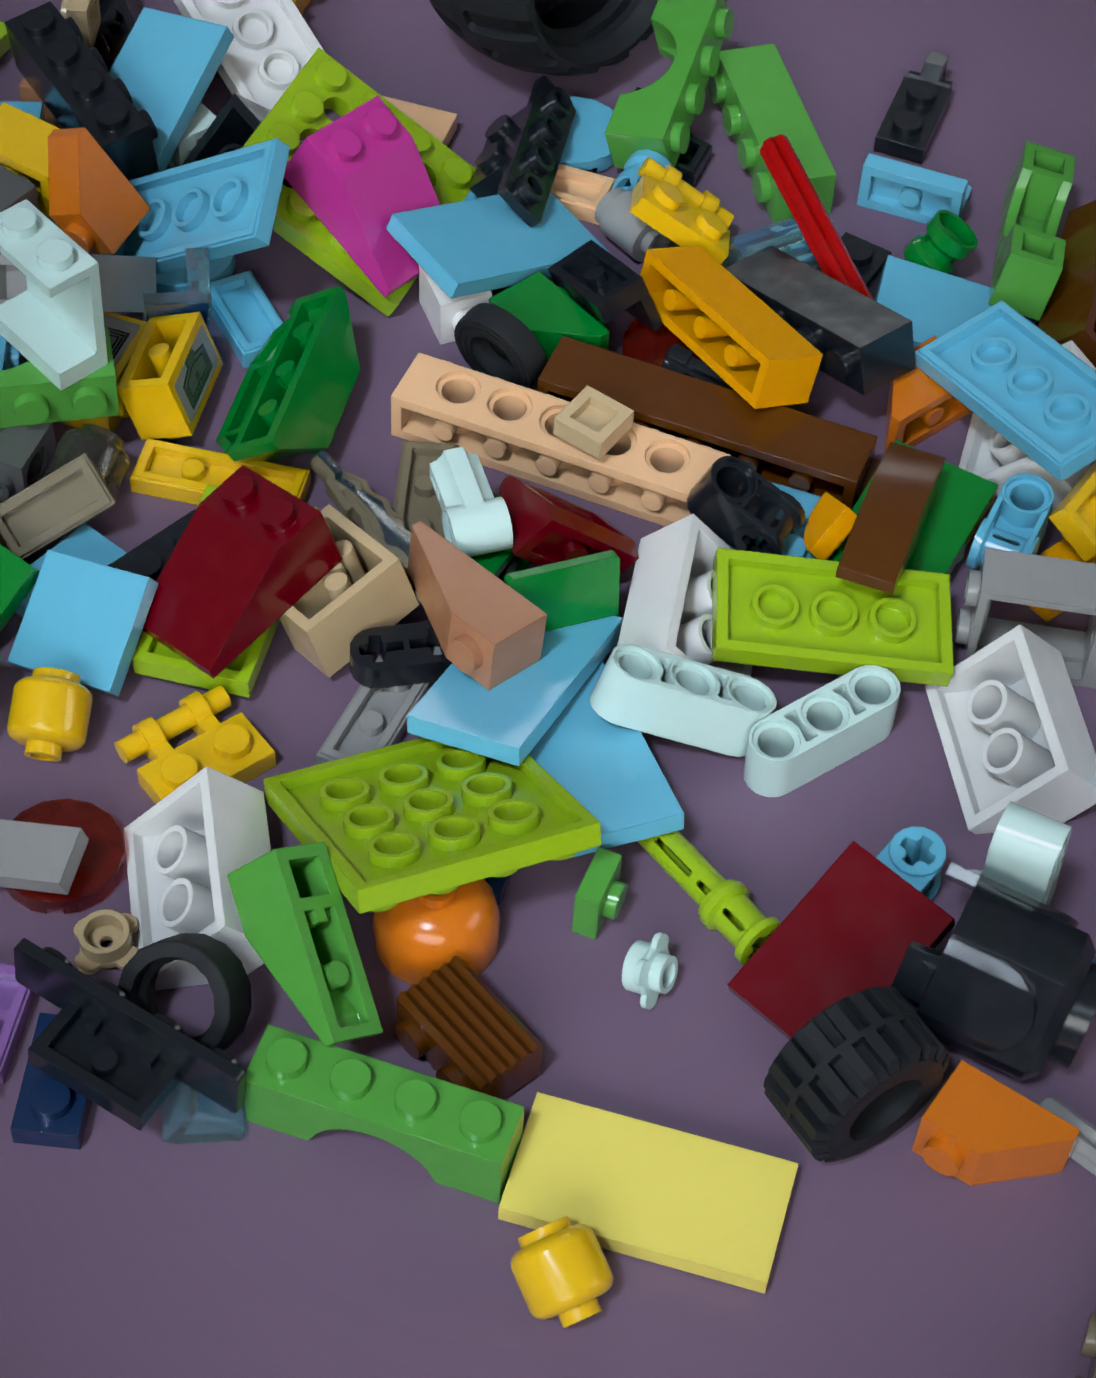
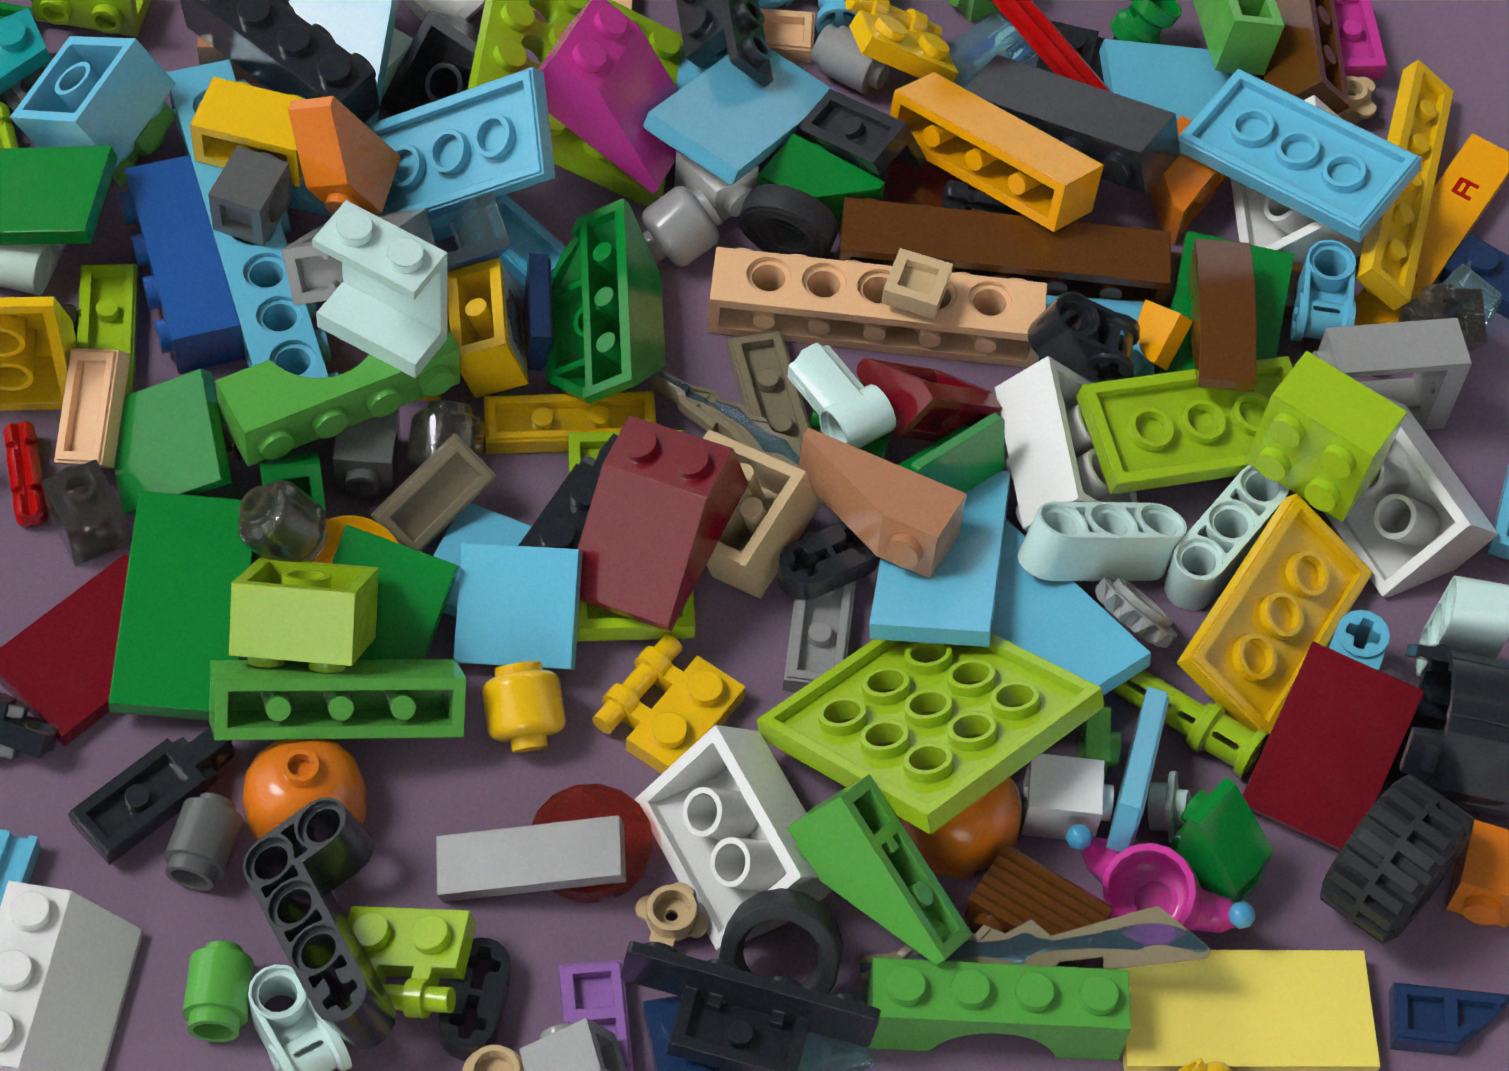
camera: 20 degrees left, 5 degrees up
(226, 376) = (538, 311): none -> dark blue tile
(399, 331) = (681, 226): none -> light grey head
(529, 1077) = (1123, 942): none -> sword
(545, 933) = (1063, 793): none -> white brick
(594, 1042) = (1156, 876): none -> dark pink piece
(623, 921) = (1138, 770): none -> medium azure tile
(679, 1018) = (1223, 842): none -> green slope
(693, 775) = (1136, 611): none -> light grey gear
(853, 790) = (1277, 603): none -> yellow tile
(858, 1254) = (1438, 1017): none -> dark blue tile
(940, 646) = (1324, 436): none -> lime brick

